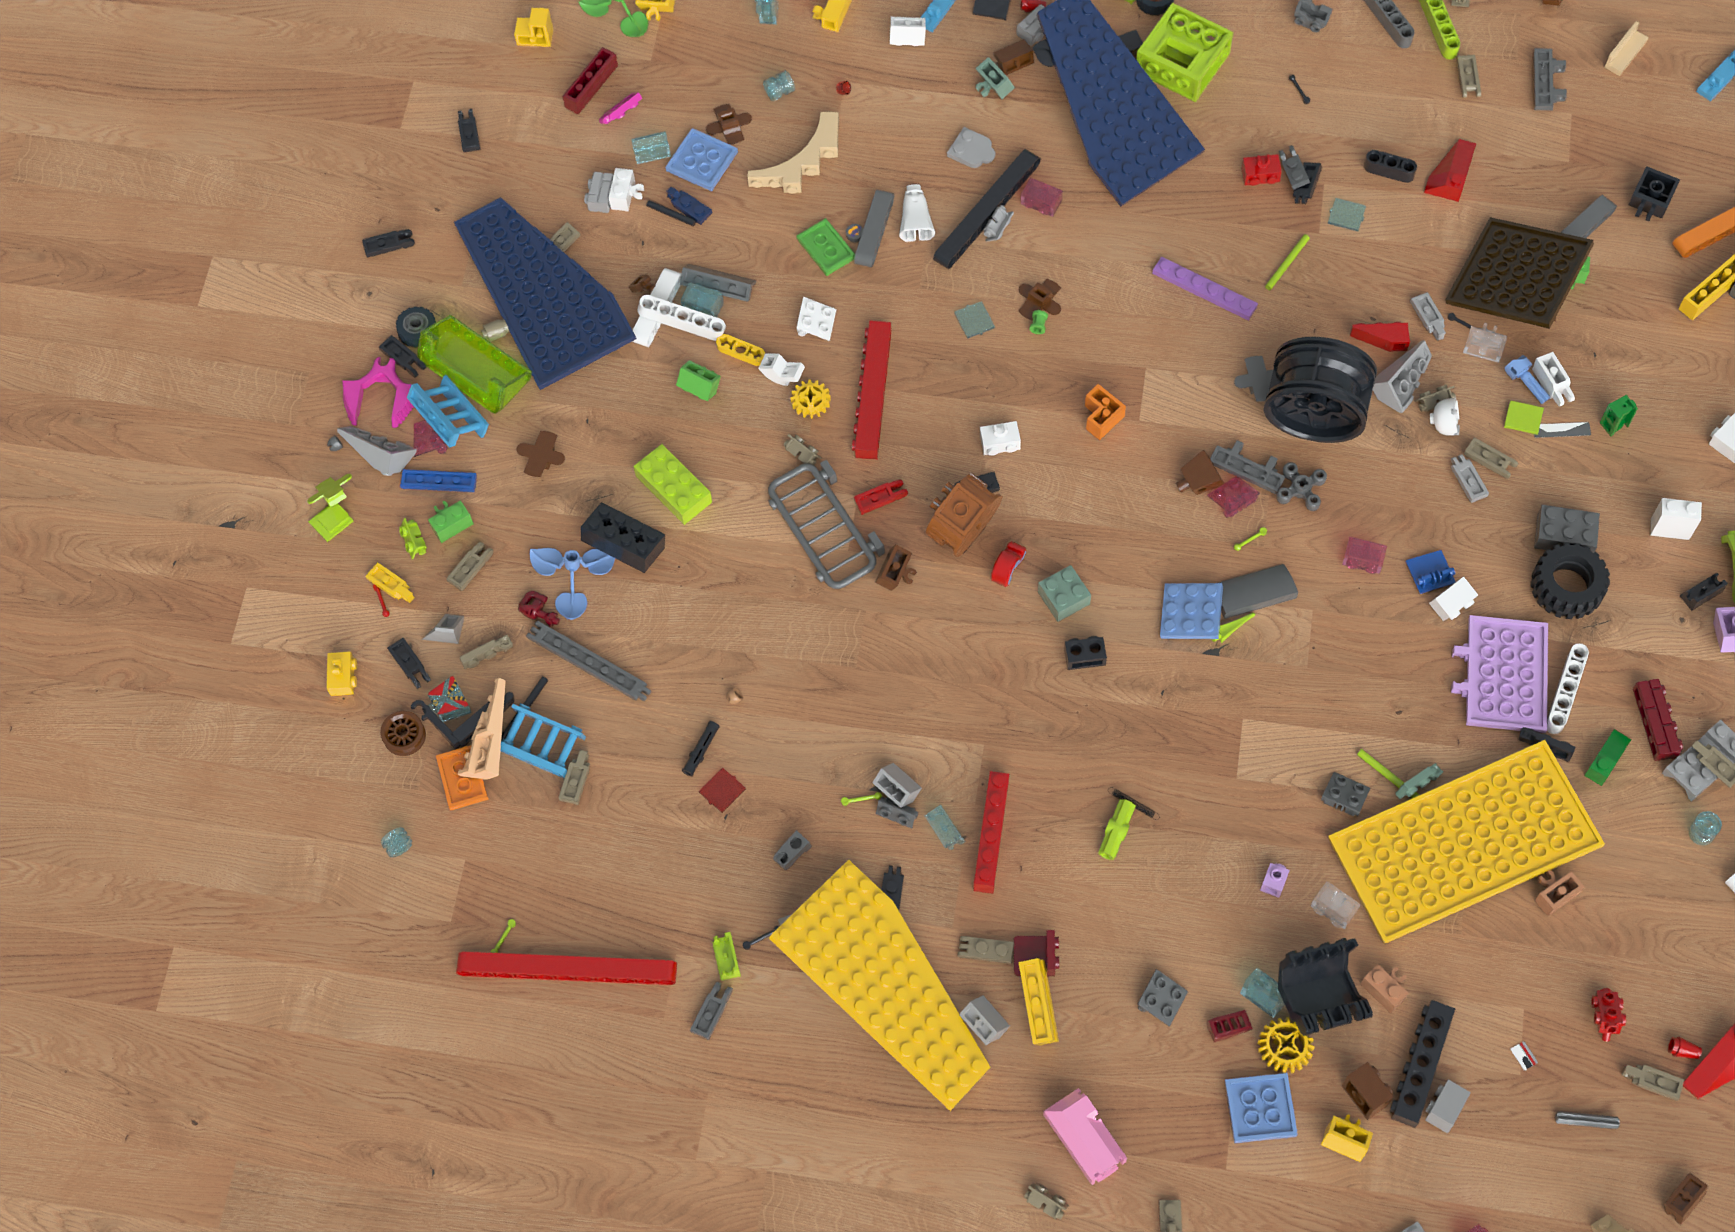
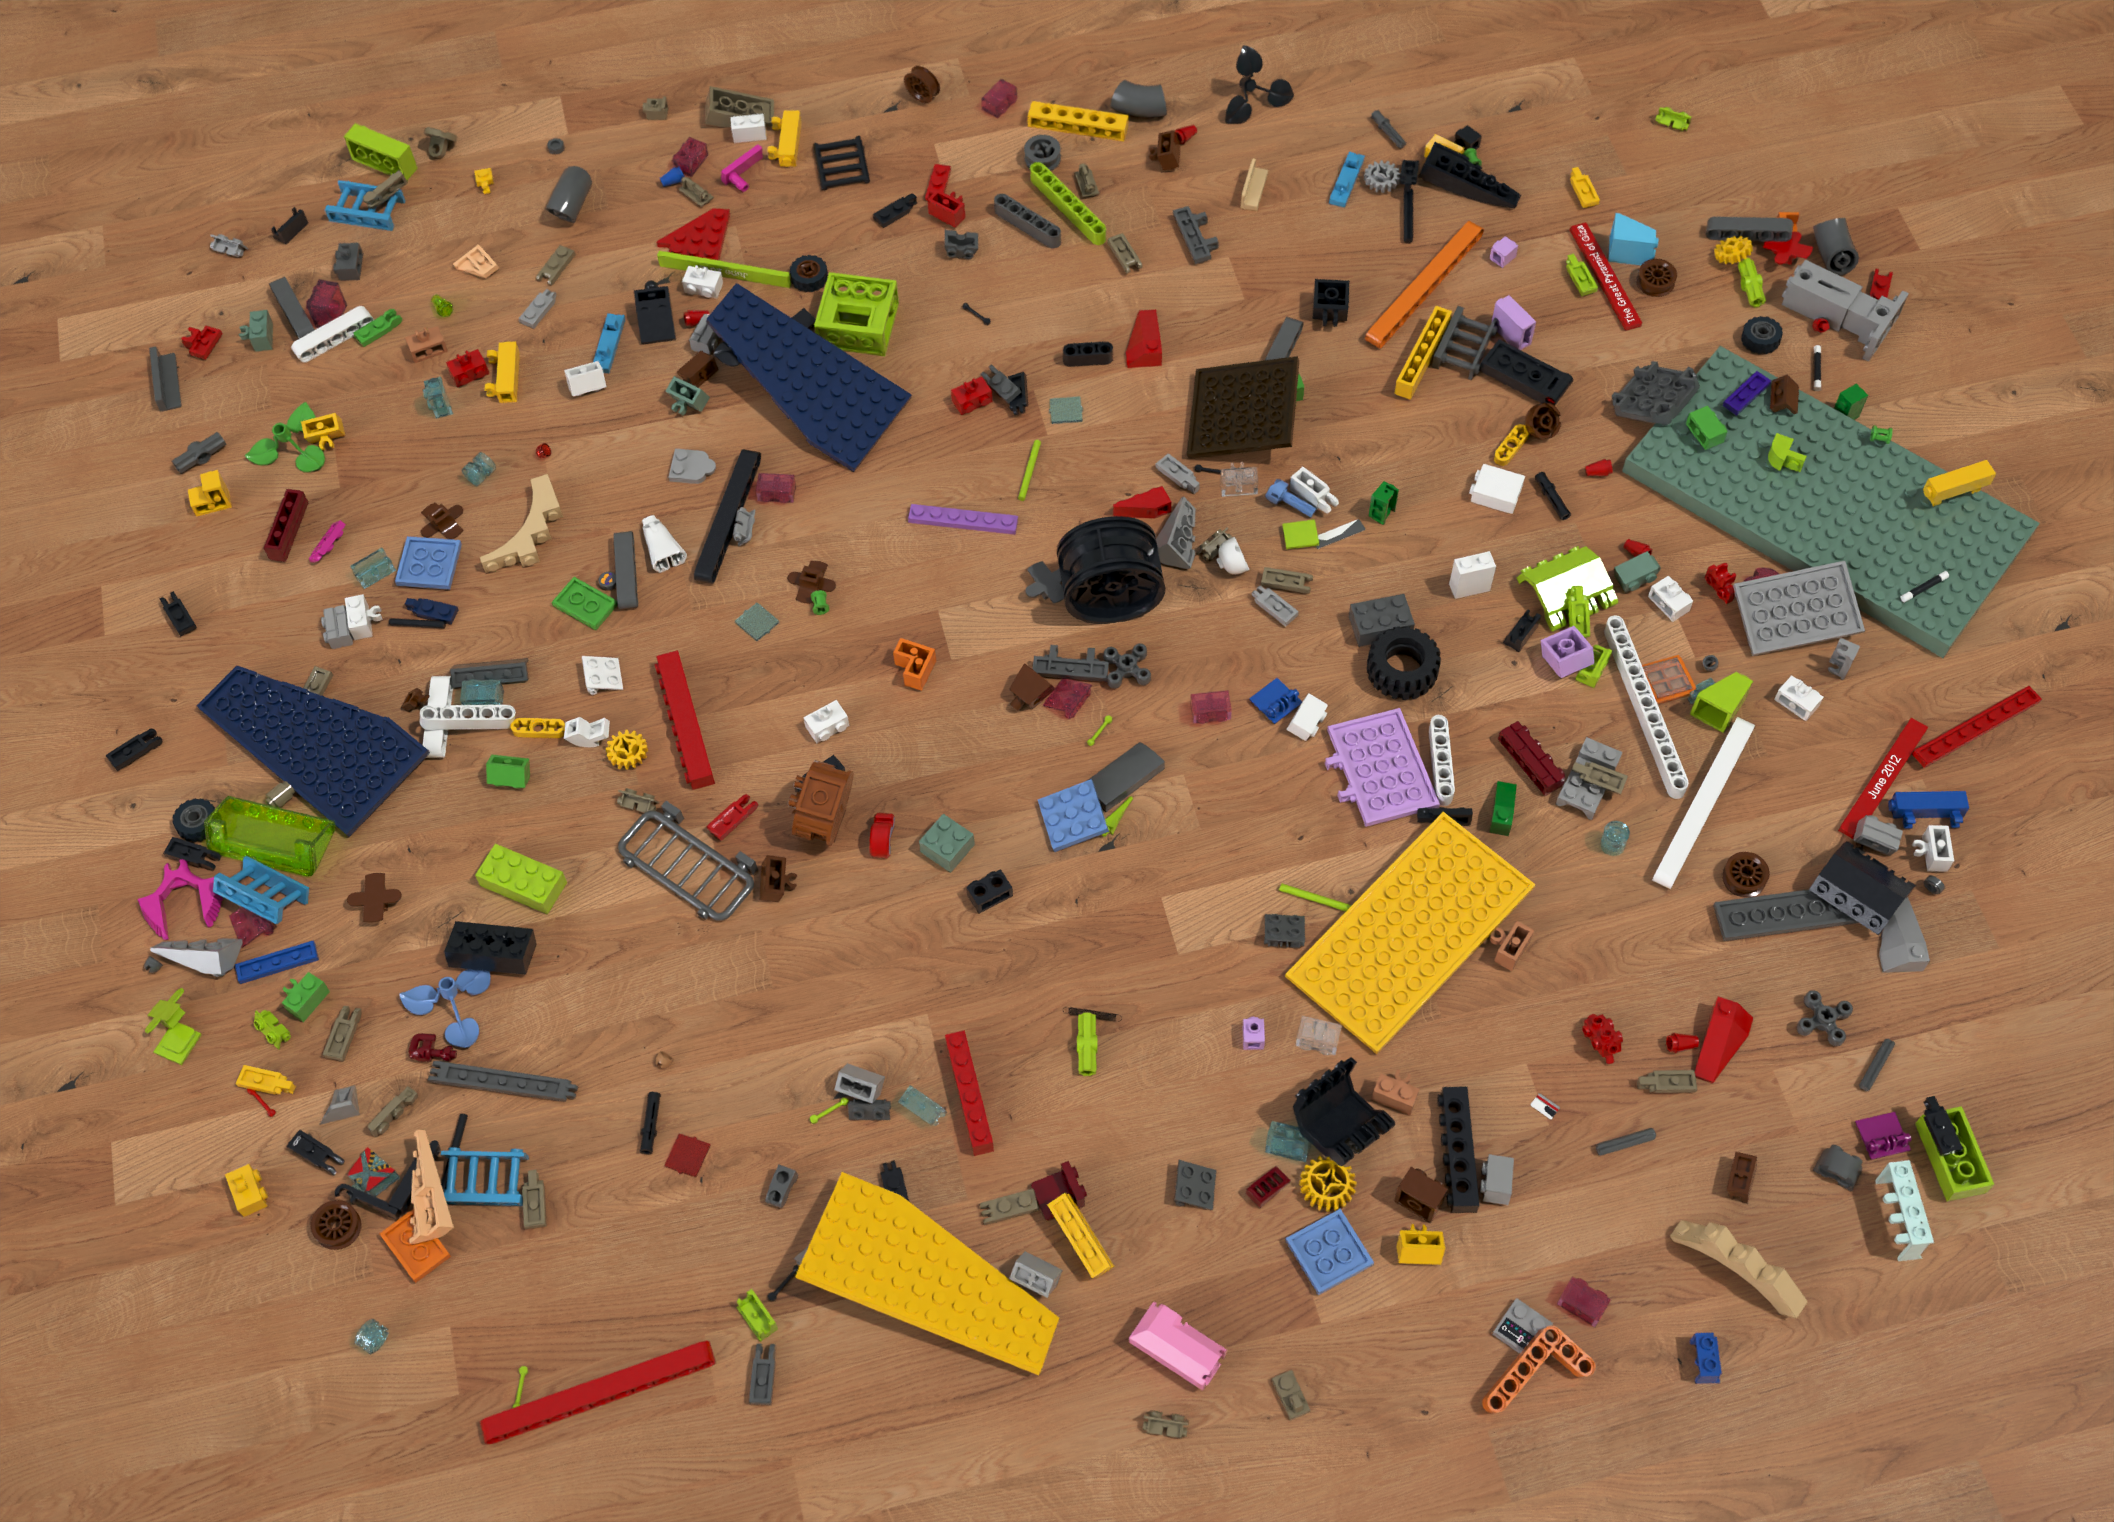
camera: 25 degrees left, 5 degrees down
(1420, 779) = (1348, 890): sand green hinge -> none

